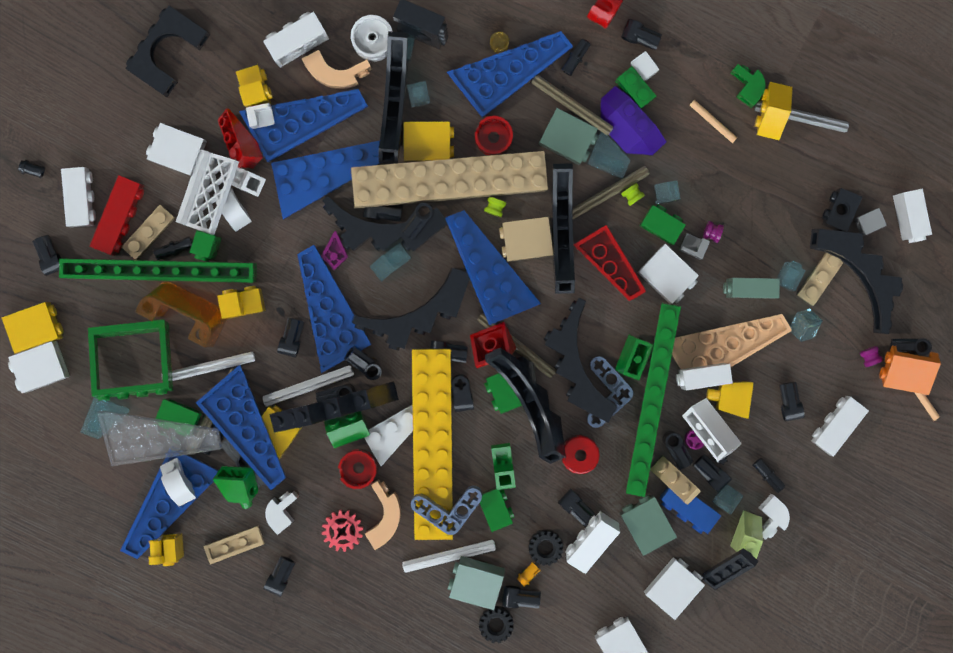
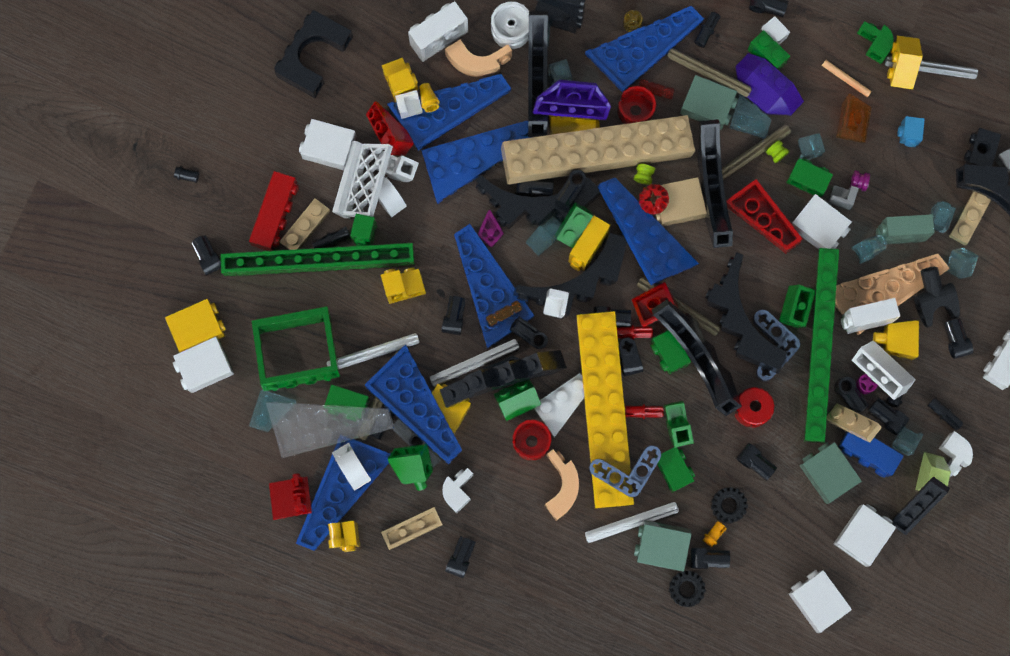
camera: 10 degrees left, 10 degrees down
(78, 197) = (234, 197): white brick -> none
(117, 505) = (290, 497): none -> red hinge
(171, 296) = (318, 291): clear orange windscreen -> none
(281, 112) = (429, 100): none -> yellow cone
(340, 340) = (504, 313): none -> clear orange axle
(349, 536) = (513, 499): coral gear -> none
(391, 338) = (556, 303): none -> white panel
(417, 258) = (574, 225): none -> green brick
(425, 130) = (573, 100): none -> dark purple wedge
(430, 277) = (588, 244): none -> yellow brick
(467, 368) = (634, 332): none -> red axle
(470, 448) = (644, 411): none -> red axle
(507, 242) = (660, 203): none -> red gear
(516, 117) = (657, 89): none -> clear red axle
(592, 542) = (776, 493): white brick -> none
(714, 303) = (870, 248): none -> clear light blue piece
(715, 167) = (853, 119): none -> clear orange slope
(771, 184) = (911, 131): none -> dark azure brick
(773, 358) = (935, 297): none -> black connector

